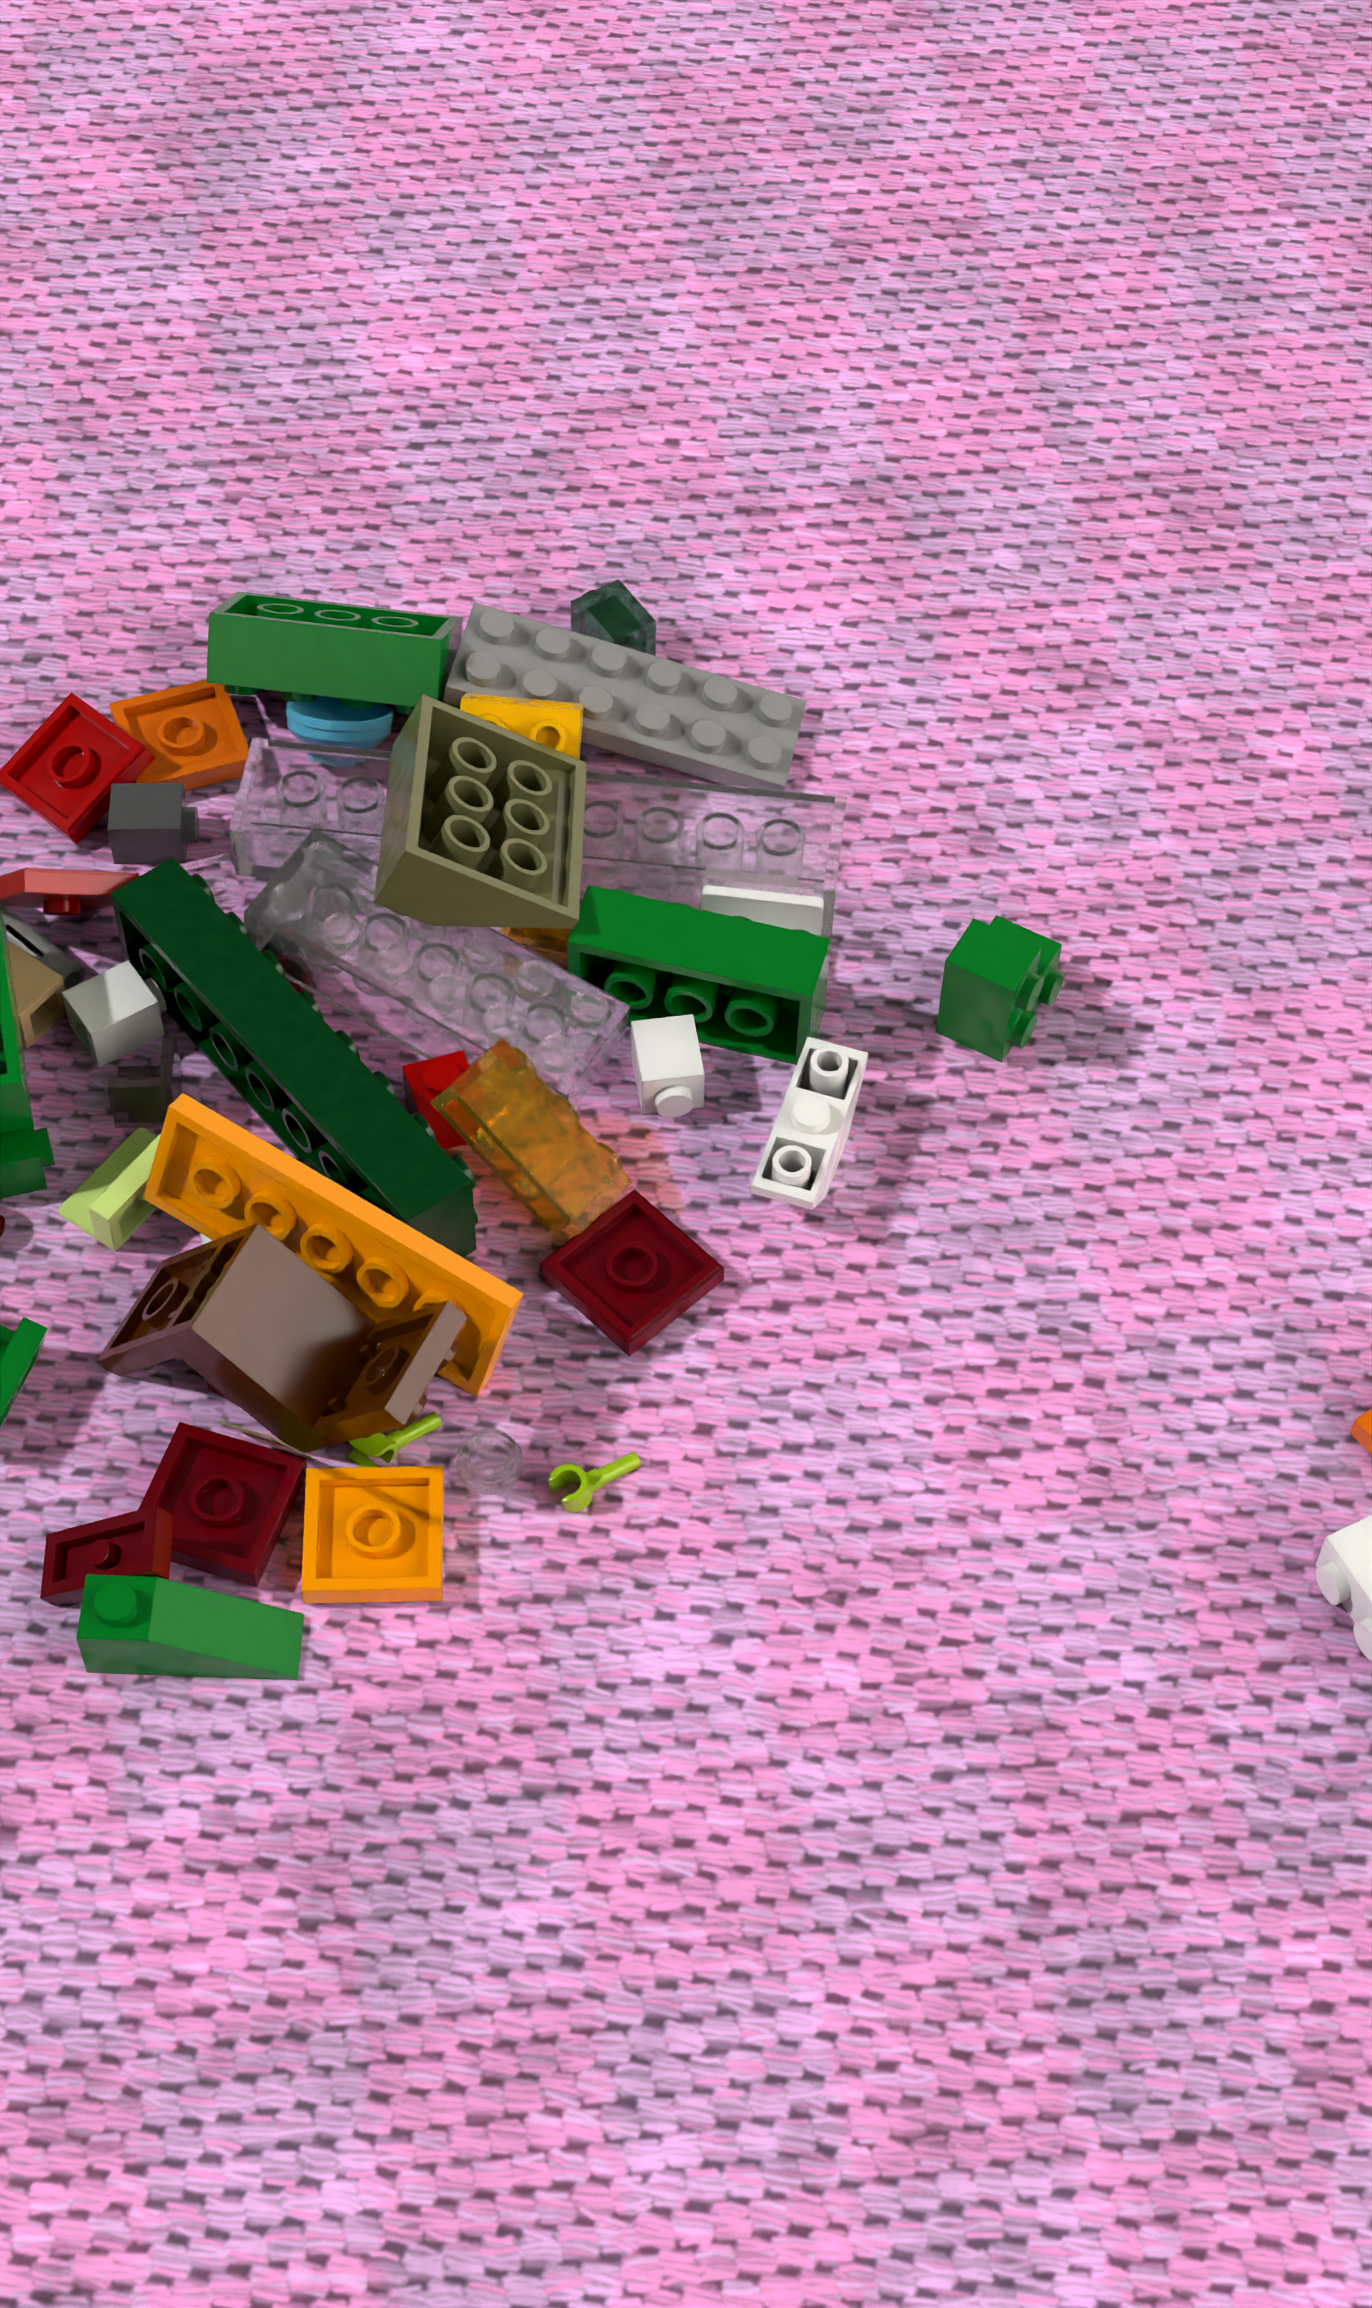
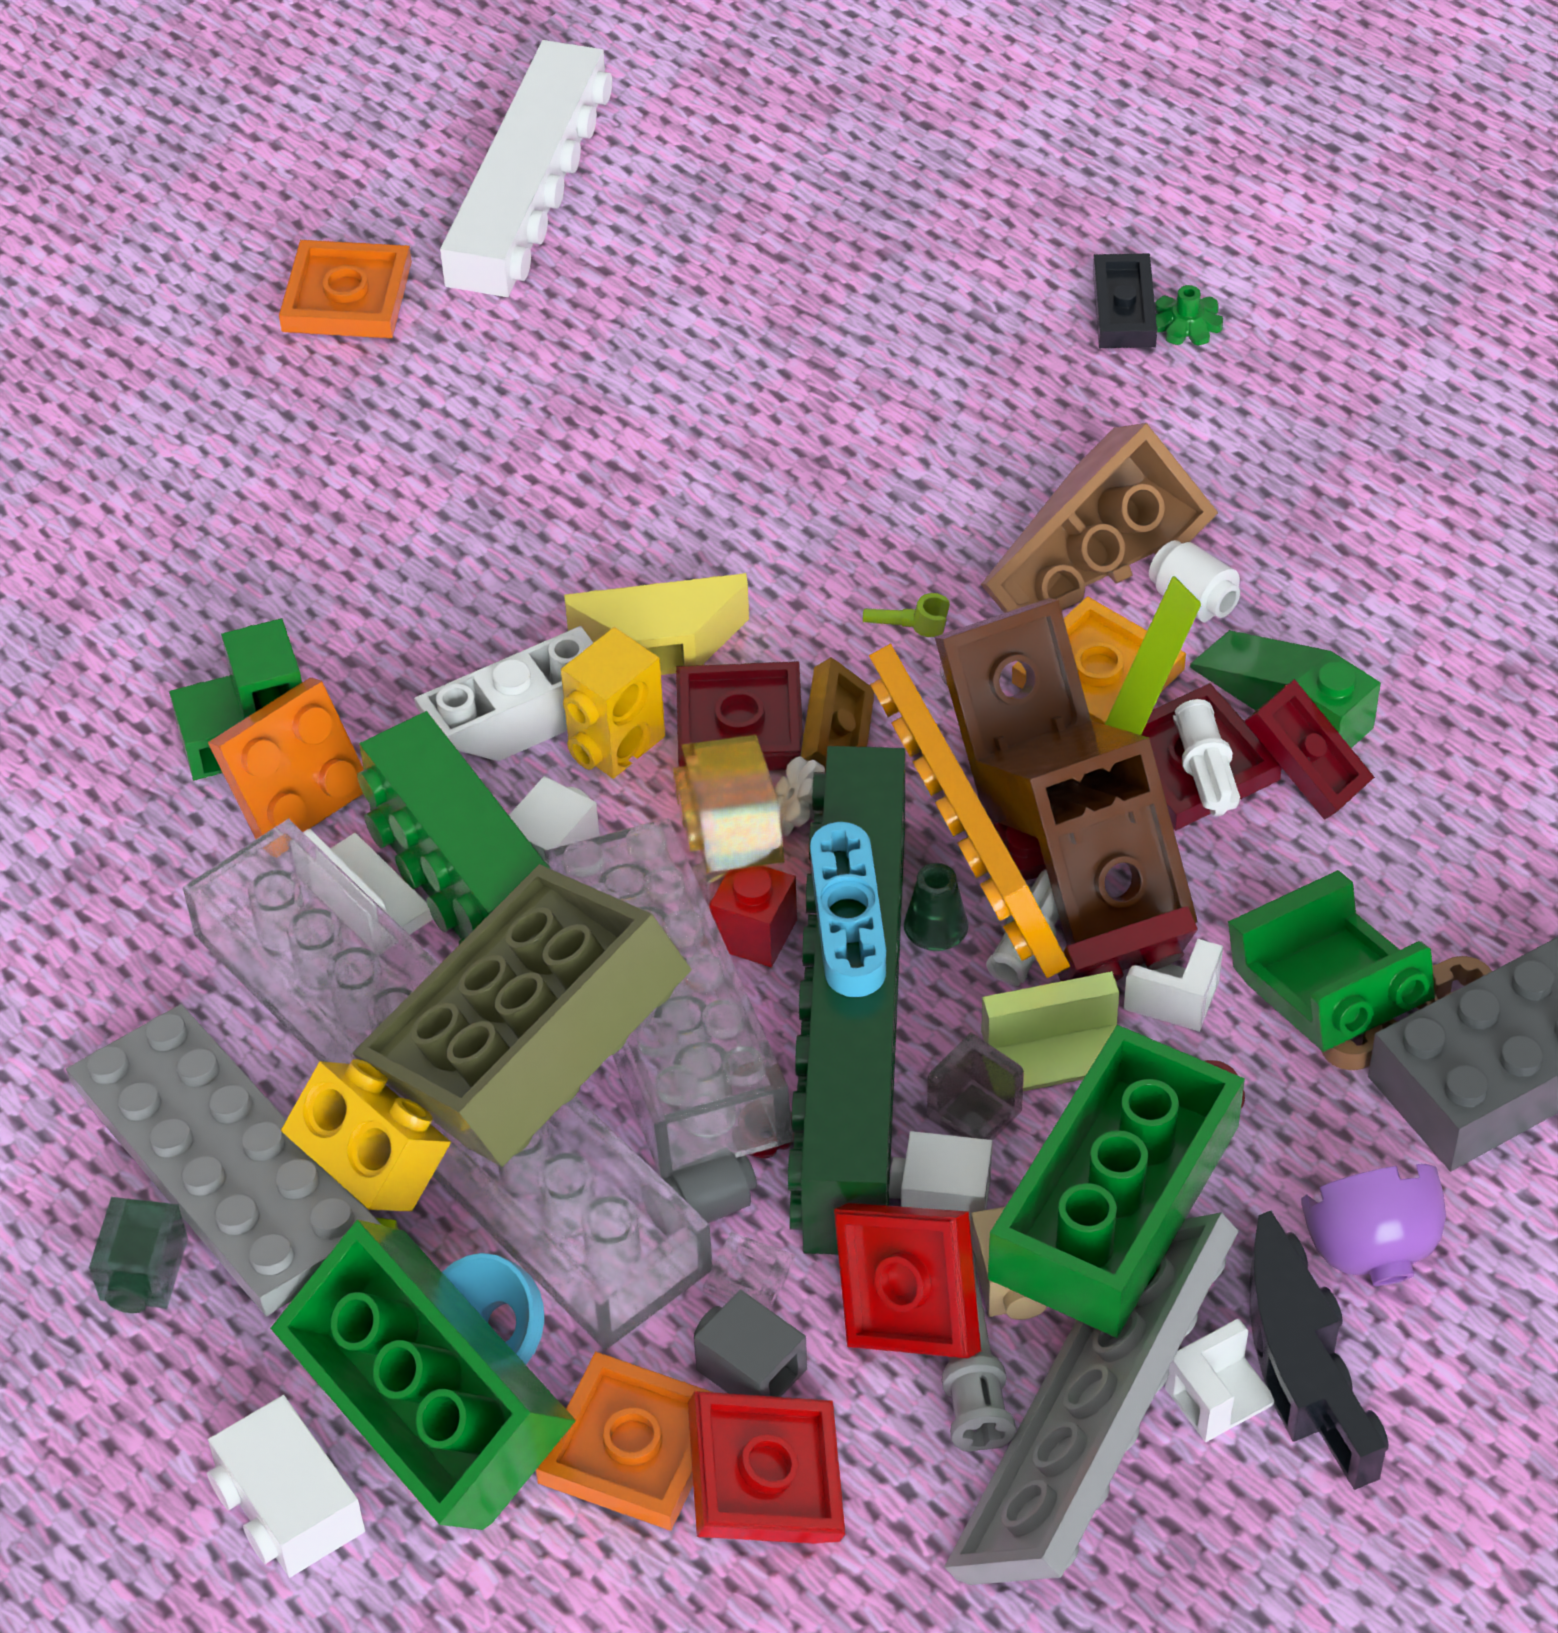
camera: 135 degrees left, 5 degrees down
(68, 1278) = (1176, 992): none -> white panel
(121, 1265) = (1151, 941): none -> dark red plate
(185, 1470) = (1206, 756): none -> white axle
(324, 1069) = (838, 931): none -> medium azure beam
(361, 1690) = (1201, 573): none -> white brick
(368, 571) = (284, 1486): none -> white brick
(507, 1228) = (796, 793): none -> white plant
(512, 1701) = (1103, 517): none -> medium nougat wedge
(548, 1318) = (836, 711): none -> pearl gold plate
(655, 2054) = (1188, 316): none -> green plant
(717, 1164) = (612, 703): none -> yellow brick
(730, 2009) = (1124, 301): none -> black plate
(780, 1294) = (672, 619): none -> light yellow slope
(901, 954) = (290, 760): none -> orange plate

